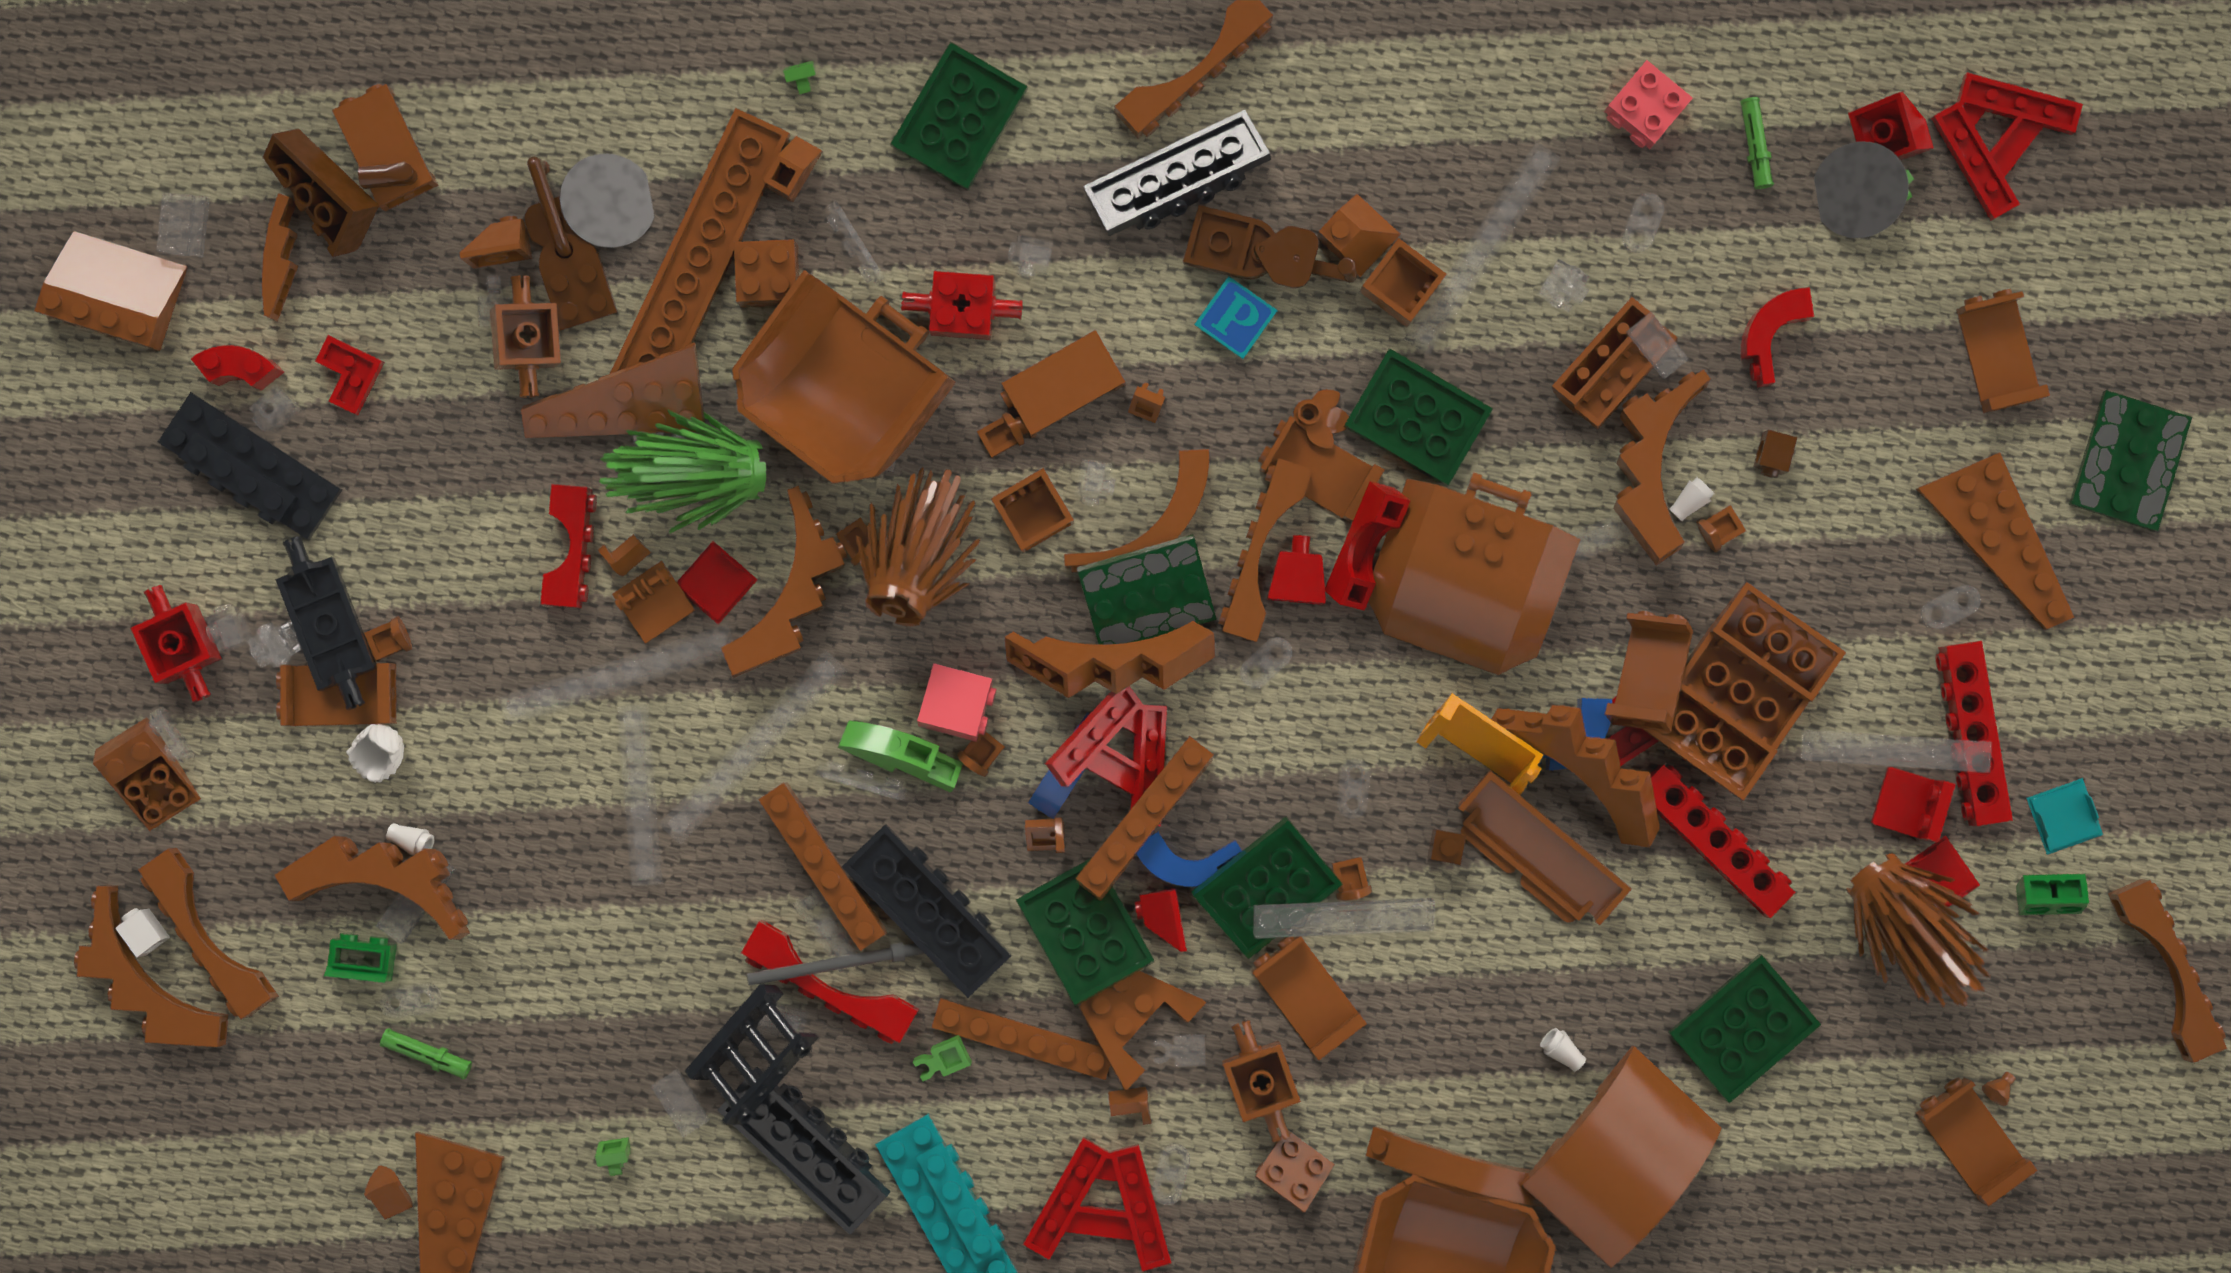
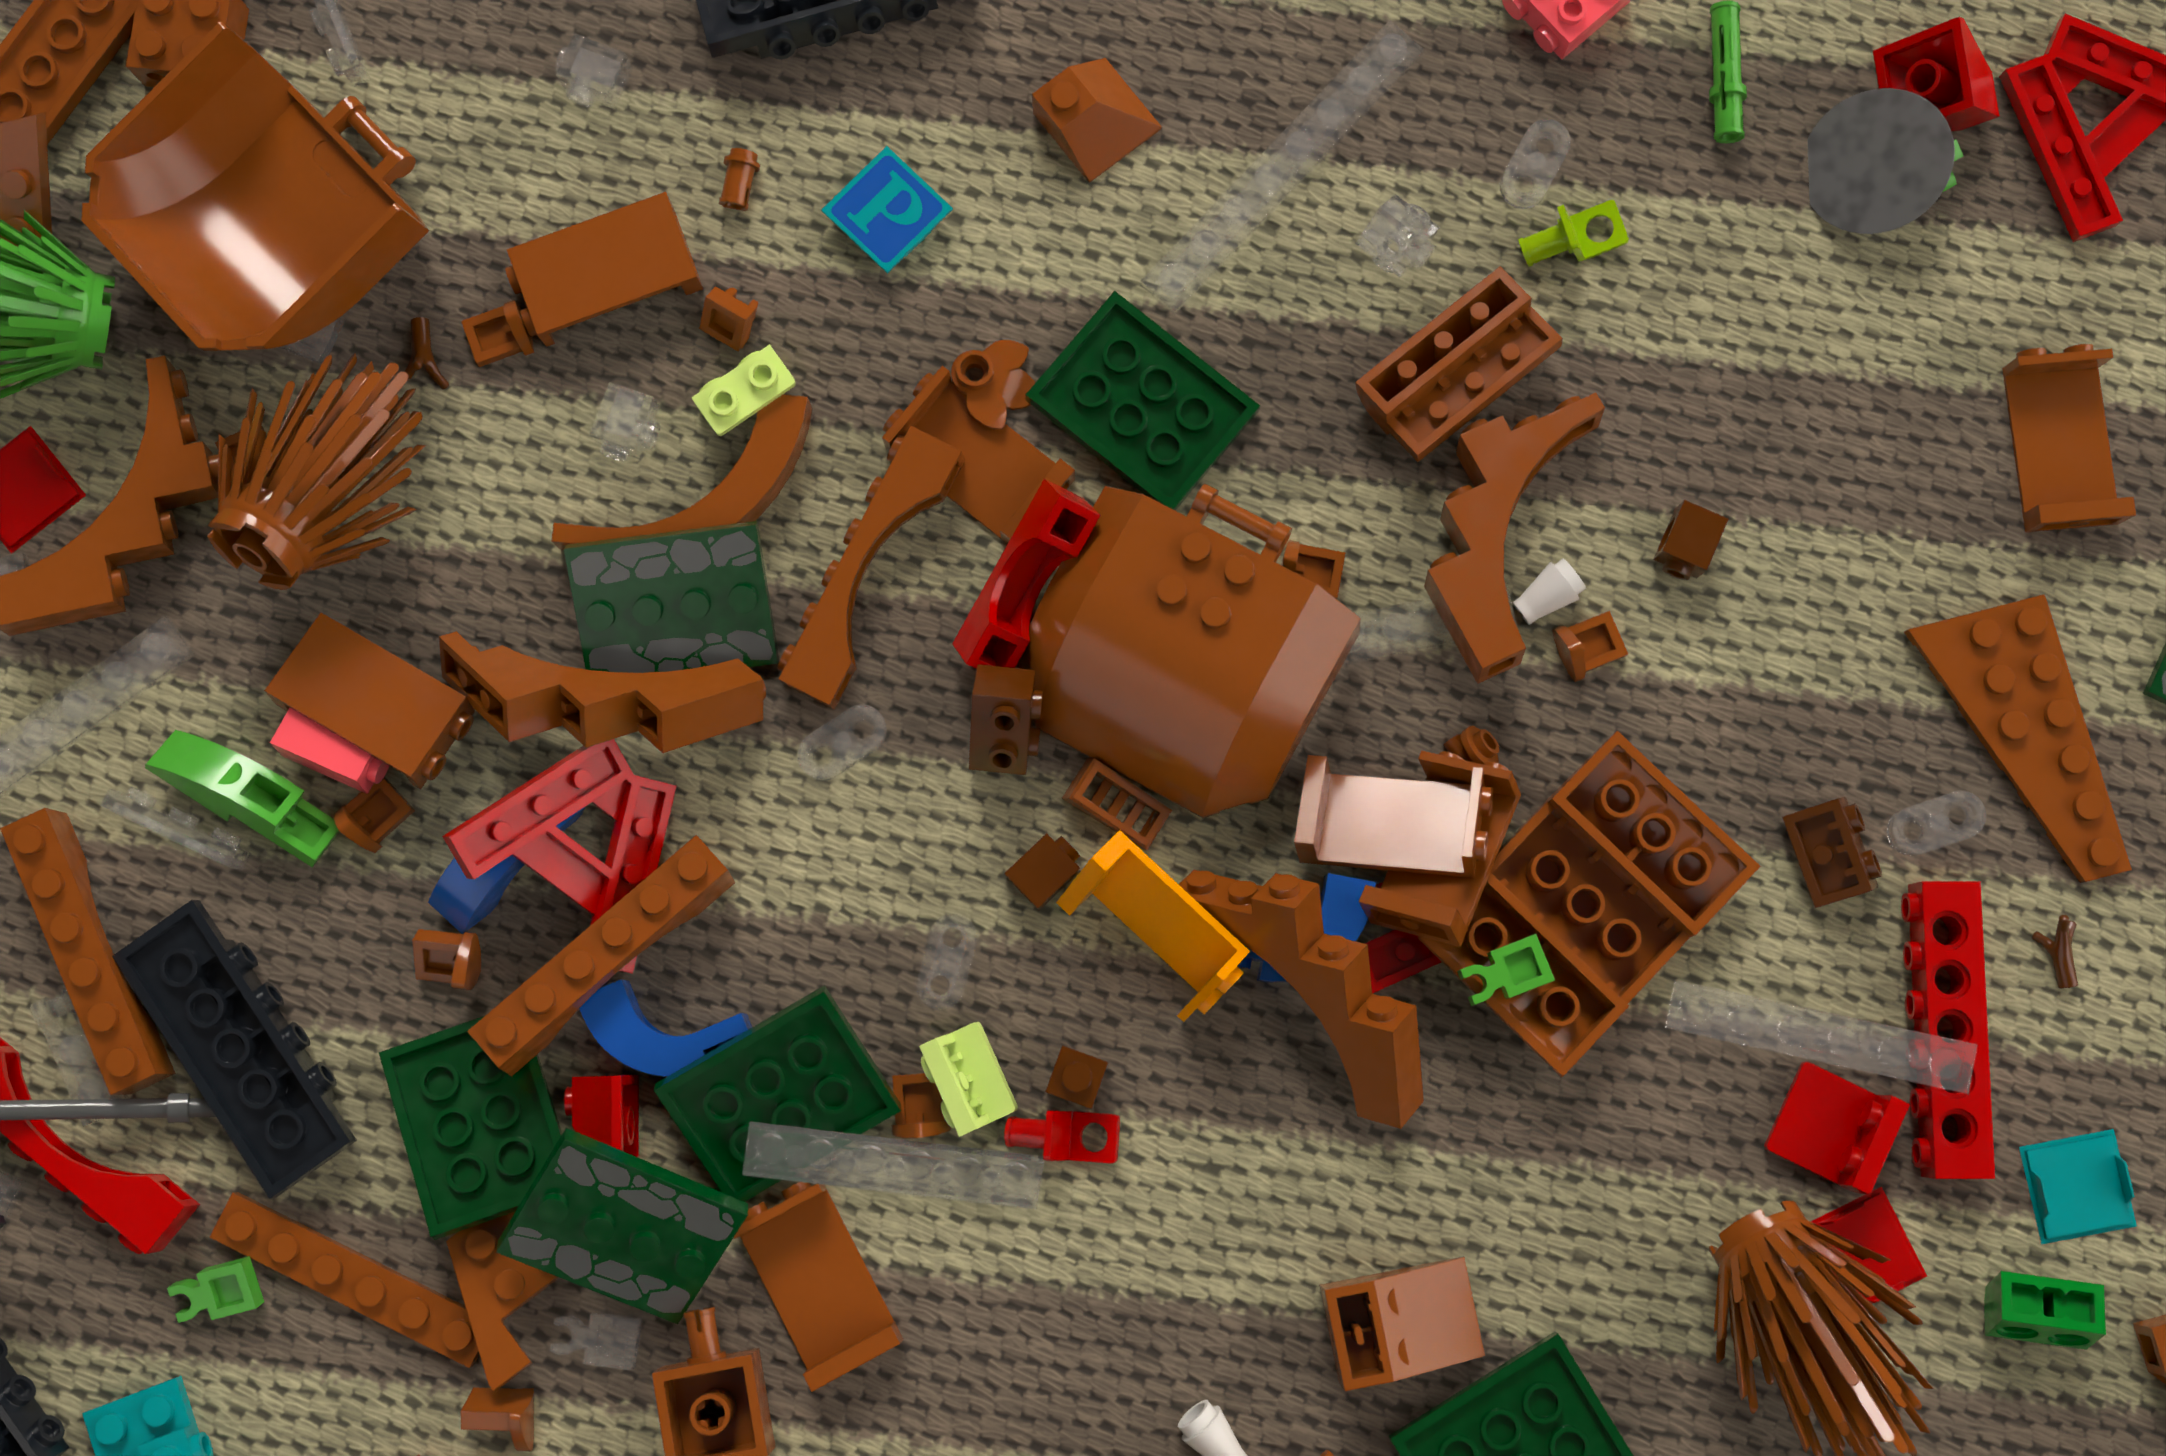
camera: 10 degrees right, 5 degrees down
(949, 290) = (456, 106): red brick -> none
(954, 455) = (422, 353): none -> reddish brown bar
(972, 682) = (372, 699): none -> dark orange panel
(1033, 510) = (519, 450): dark orange piece -> none
(1136, 311) = (738, 178): none -> dark orange pin
(1174, 446) = (744, 390): none -> yellowish green bracket
(1190, 980) = (622, 1226): none -> dark green plate
(1228, 245) = (898, 95): reddish brown plate -> none
(1298, 575) = (914, 614): red torso -> none
(1367, 634) = (1002, 719): none -> reddish brown brick
(1380, 858) = (967, 1078): none -> yellowish green bracket
(1402, 282) = (1151, 194): dark orange piece -> none
(1405, 723) = (1044, 870): none -> reddish brown brick
(1419, 664) = (1110, 778): none -> dark orange slope
(1442, 883) = (1062, 1135): none -> red bracket
(1544, 507) = (1315, 564): none -> dark orange tile
(1551, 861) = (1239, 1126): dark orange slope -> none
(1616, 660) = (1392, 822): none -> panel
(1657, 345) = (1528, 342): clear plate -> none
(1659, 604) = (1474, 745): none -> dark orange plate
(1666, 963) = (1401, 1323): none -> dark orange slope
(1673, 267) = (1572, 236): none -> lime bracket
(1705, 740) = (1513, 968): none -> bright green plate
(1756, 341) = (1728, 325): red arch -> none
(1777, 886) = (1578, 1245): red brick -> none
(1889, 635) = (1832, 851): none -> reddish brown bracket
(2037, 674) = (2061, 951): none -> reddish brown bar

